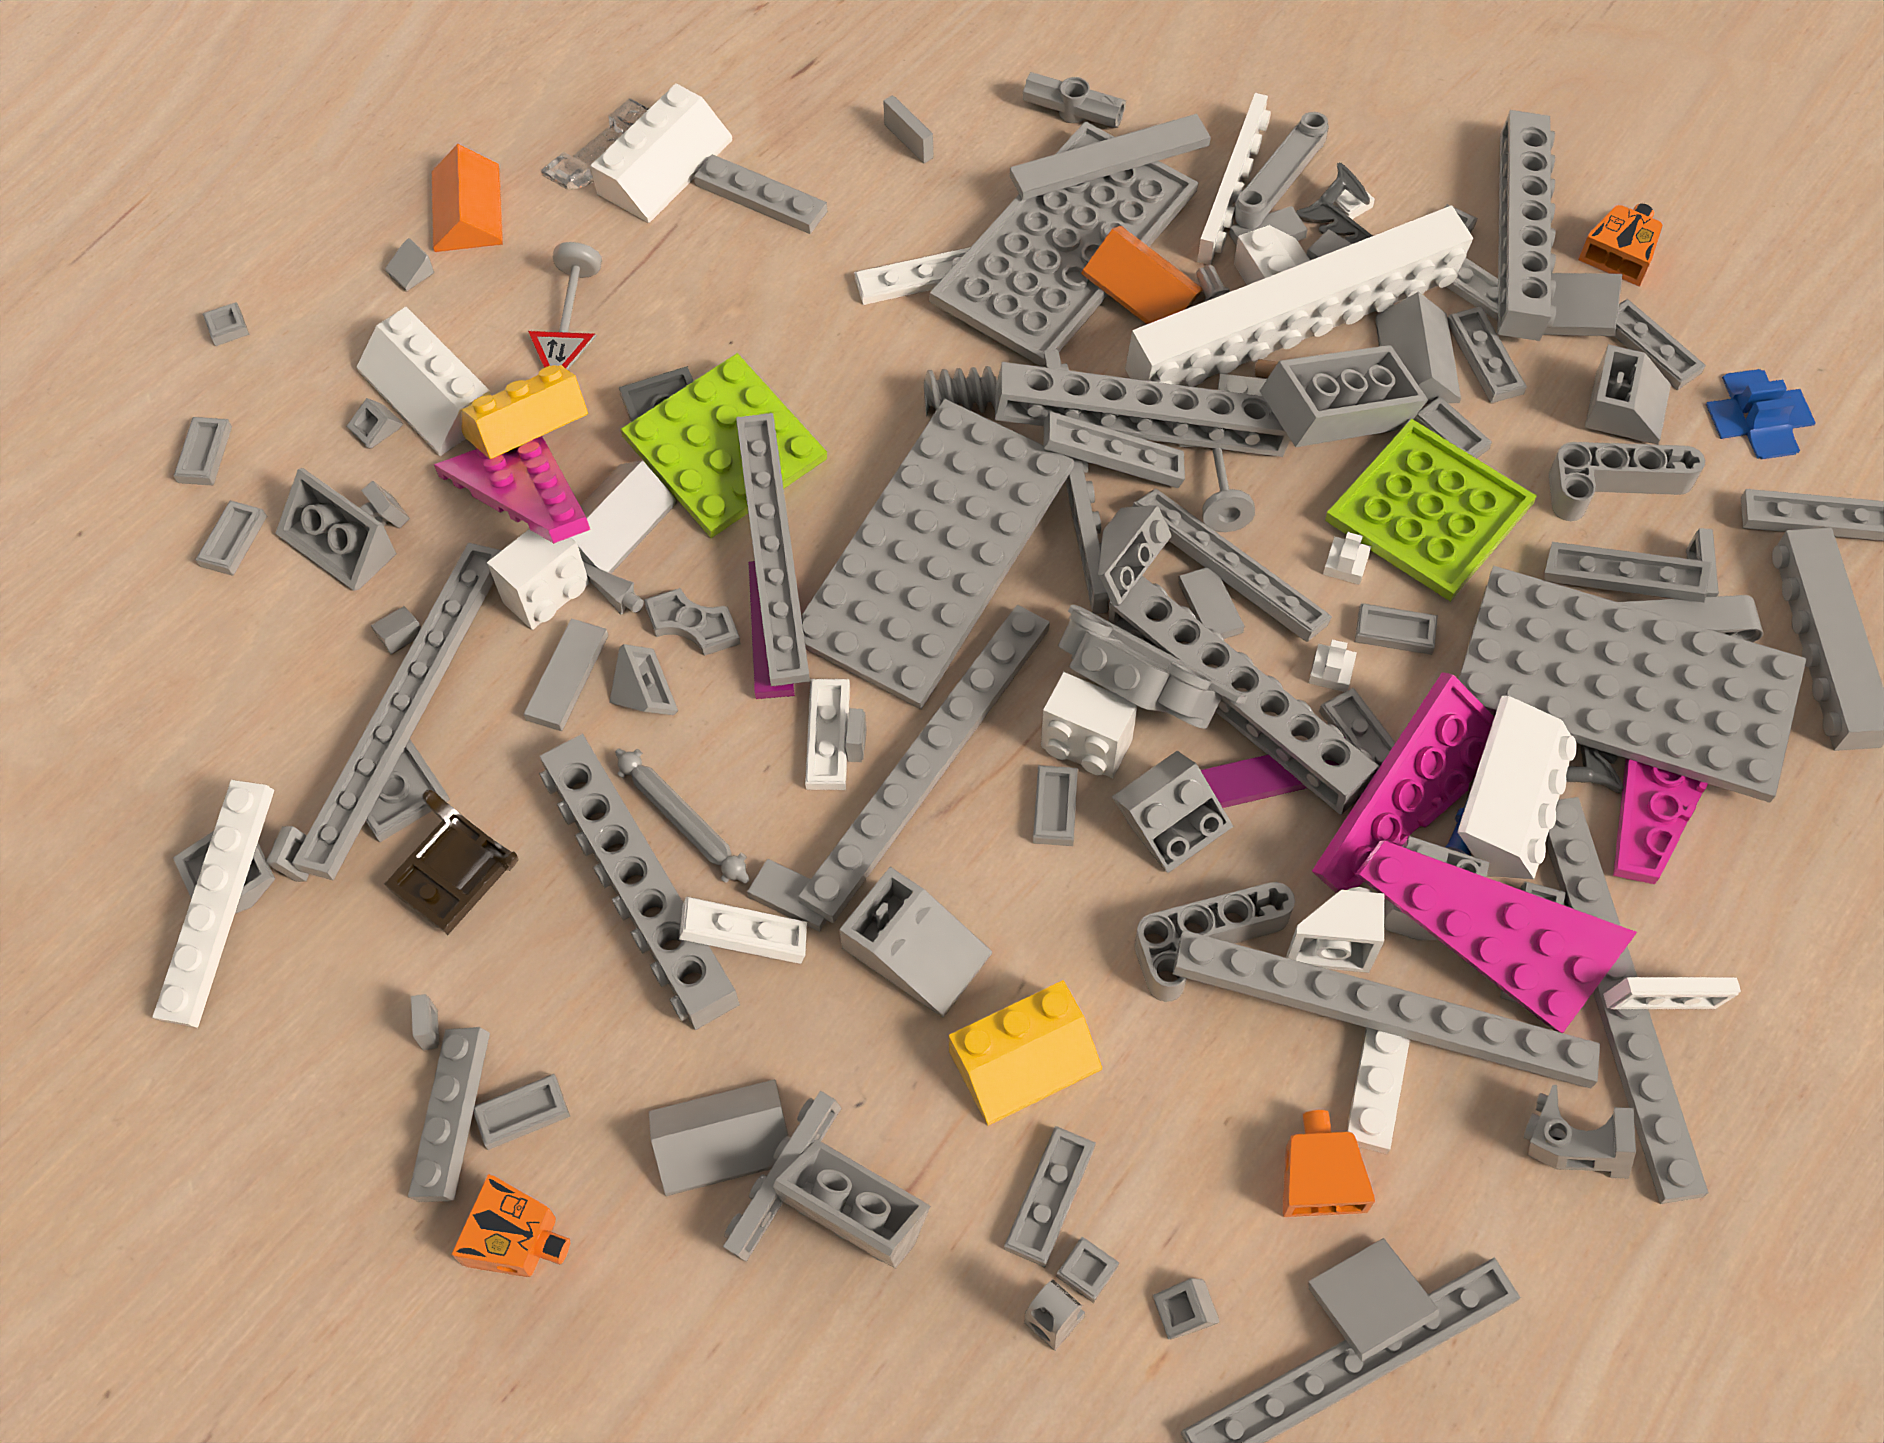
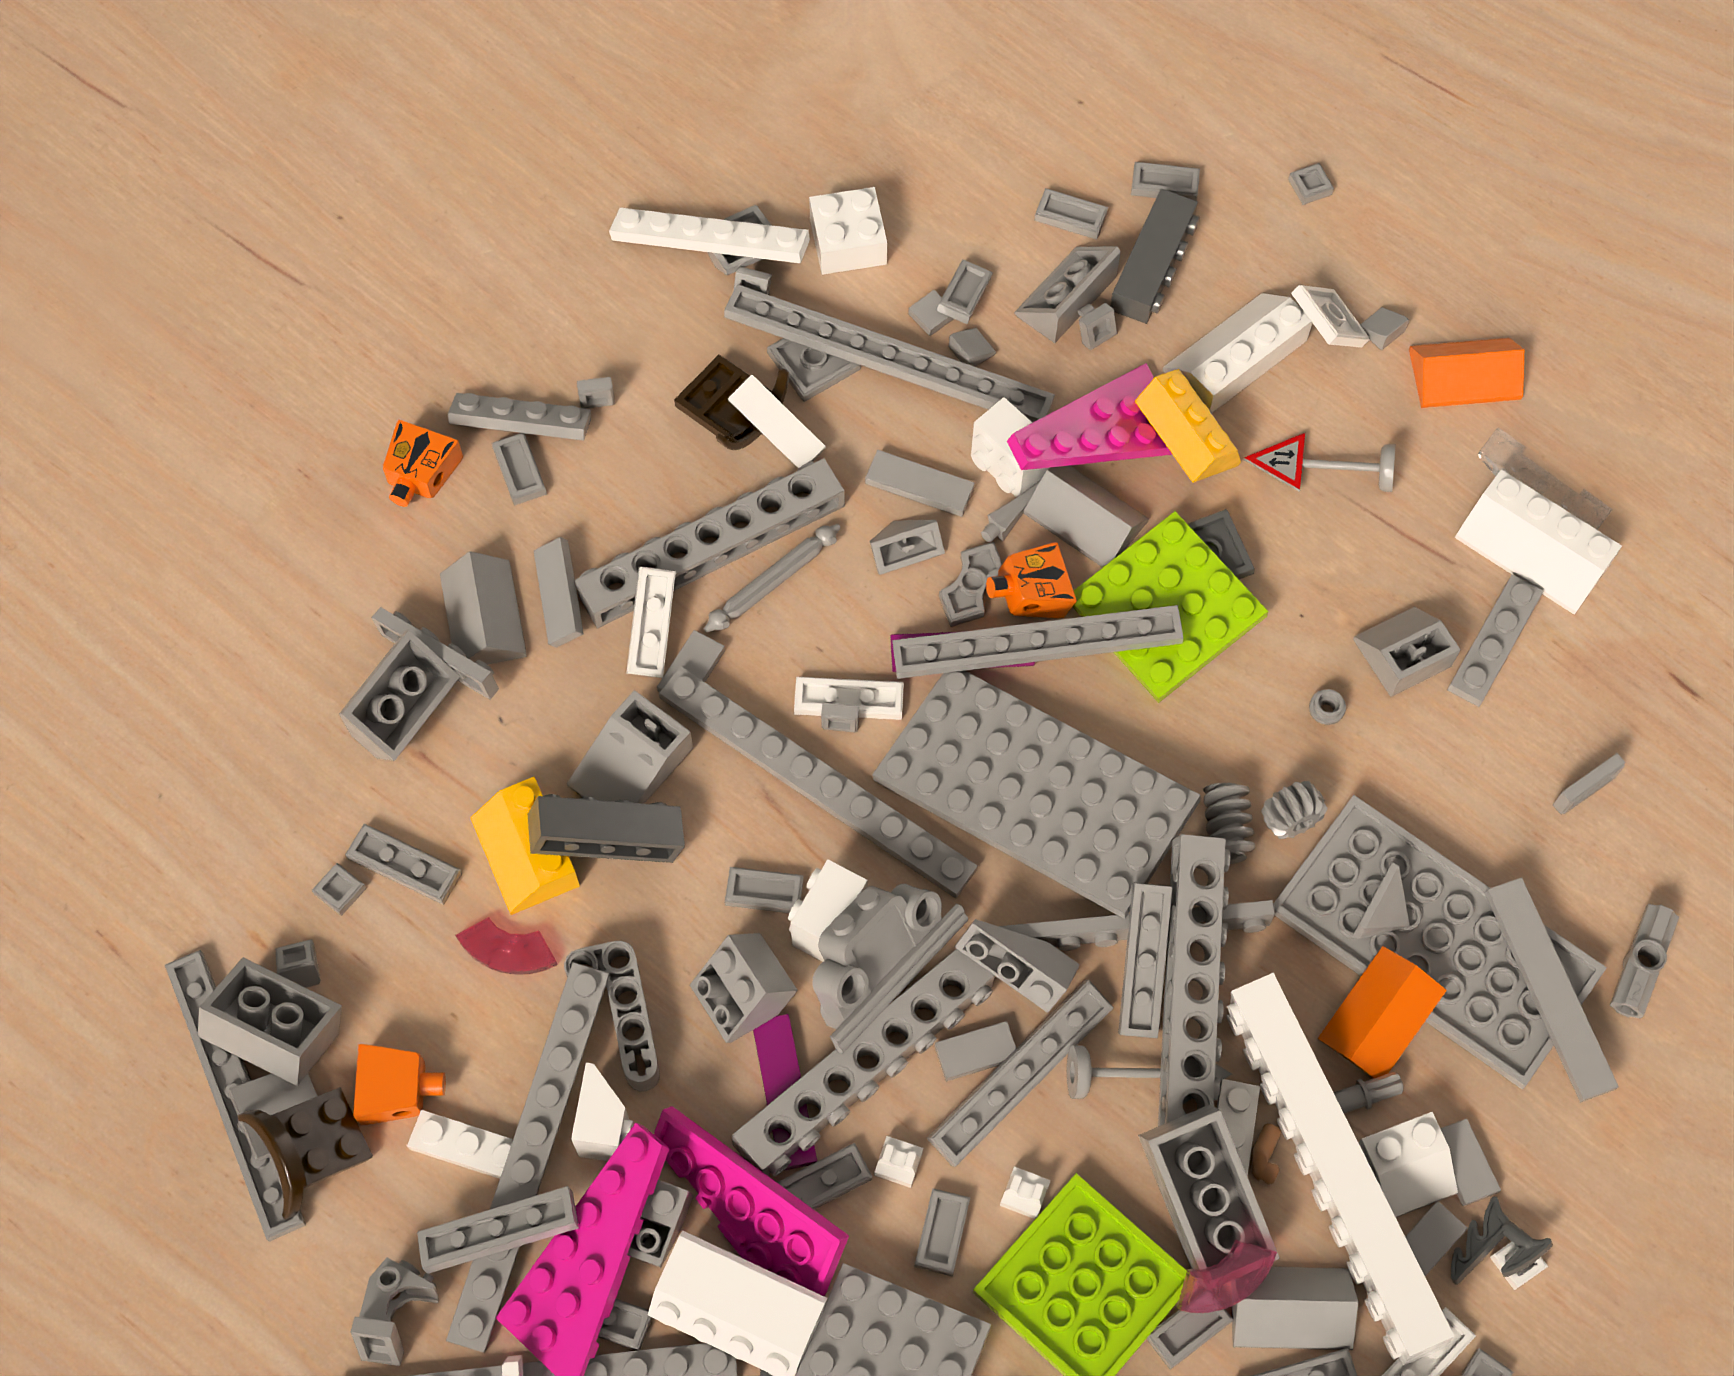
camera: 90 degrees right, 5 degrees up
(224, 747) = (848, 230): none -> white brick
(284, 447) = (1154, 256): none -> dark grey brick
(324, 633) = (964, 291): none -> light grey tile
(346, 669) = (926, 314): none -> light grey tile
(373, 423) = (1197, 313): light grey slope -> none
(398, 298) = (1330, 316): none -> white tile
(484, 814) = (776, 422): none -> white tile
(696, 1044) = (558, 592): none -> light grey tile
(698, 553) = (1034, 583): none -> orange torso
(774, 250) = (1407, 649): none -> light grey slope
(832, 318) = (1329, 698): none -> light grey plate
(905, 277) = (1389, 781): white tile -> none
(948, 336) = (1294, 809): none -> light grey gear
(1011, 951) = (605, 829): none -> dark grey brick
(1041, 269) = (1387, 908): none -> light grey slope
(1053, 1314) = (299, 854): light grey leg -> none
(1147, 1069) = (506, 951): none -> clear pink tile
(1238, 168) = (1551, 1133): white plate -> none
(1275, 1314) = (269, 1021): none -> light grey brick
(1281, 170) = (1550, 1182): light grey piece -> none
(1411, 1249) = (310, 1143): none -> dark brown piece
(1421, 379) = (1228, 1281): none -> clear pink tile
(1486, 1020) = (497, 1230): none -> light grey plate

